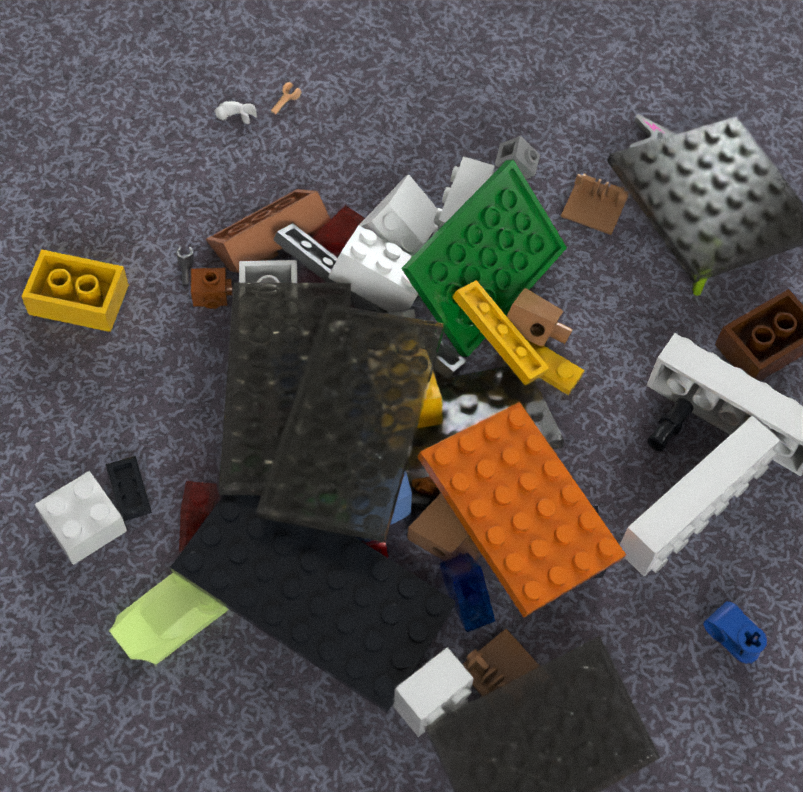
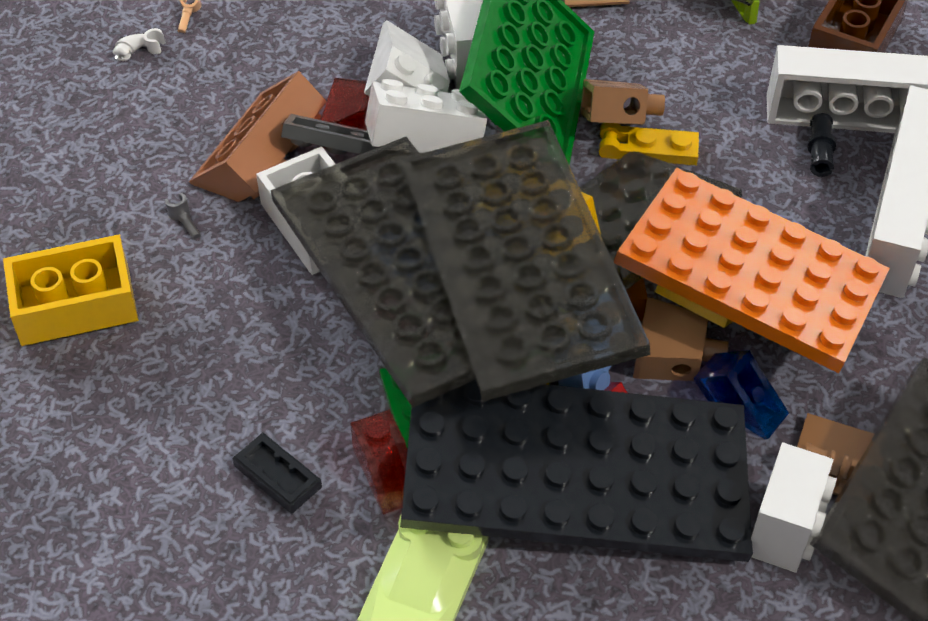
camera: 25 degrees left, 10 degrees down
(81, 517) = (241, 528): white brick -> none
(210, 287) = (231, 222): dark orange brick -> none
(500, 332) = (597, 121): yellow plate -> none

